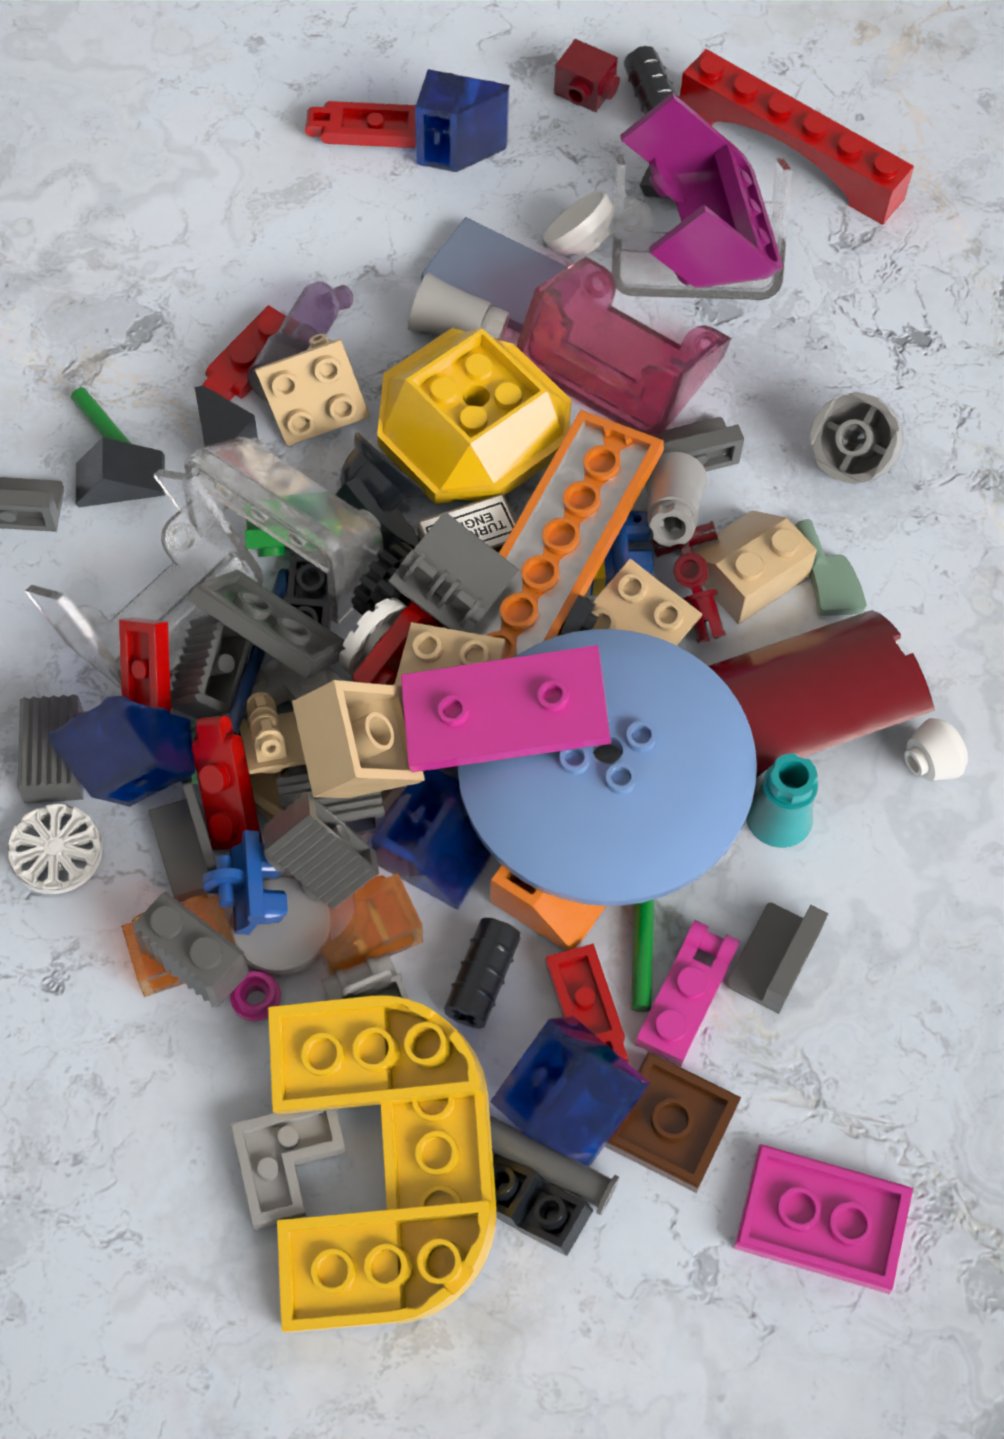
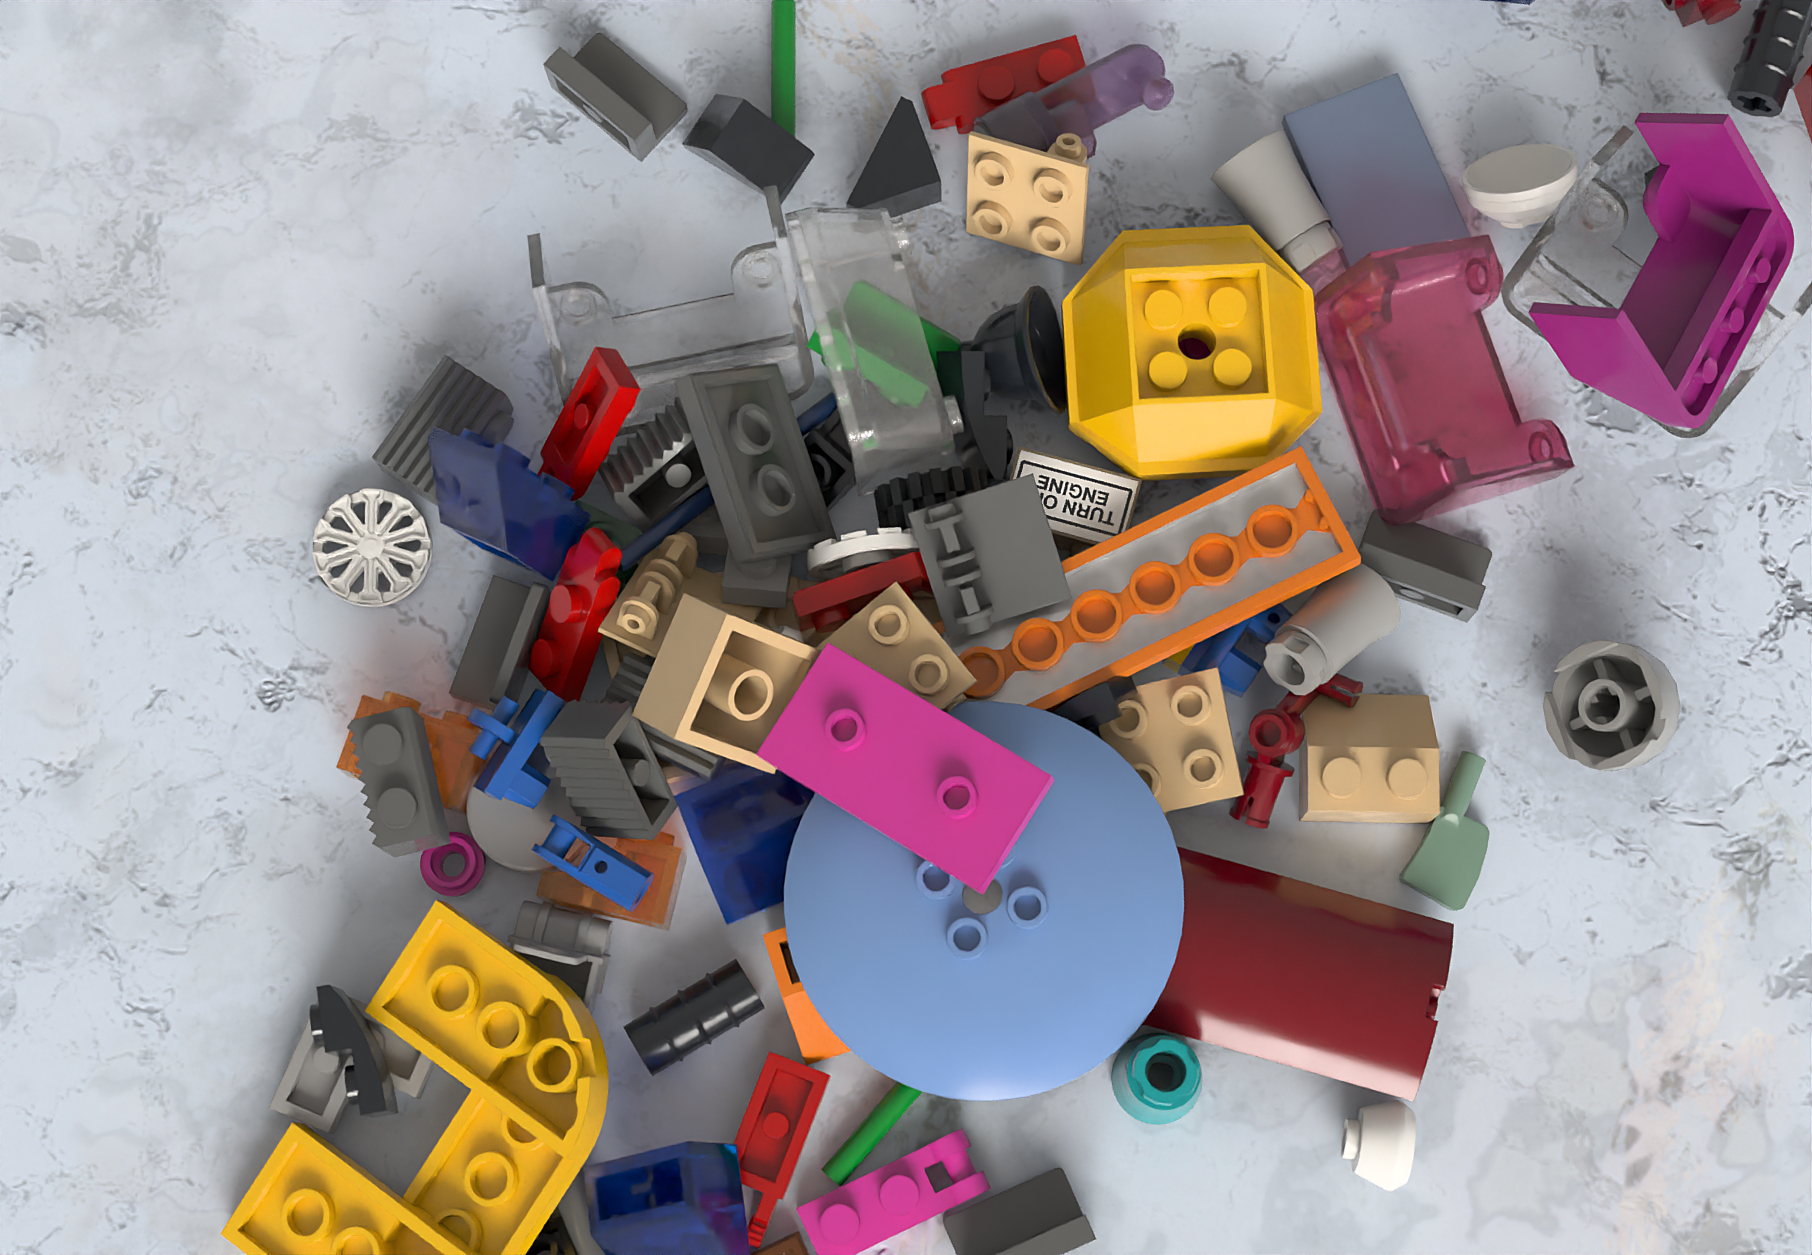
camera: 45 degrees right, 15 degrees up
(274, 1132) = (346, 1032): none -> black slope
(361, 913) = (601, 867): none -> blue bar

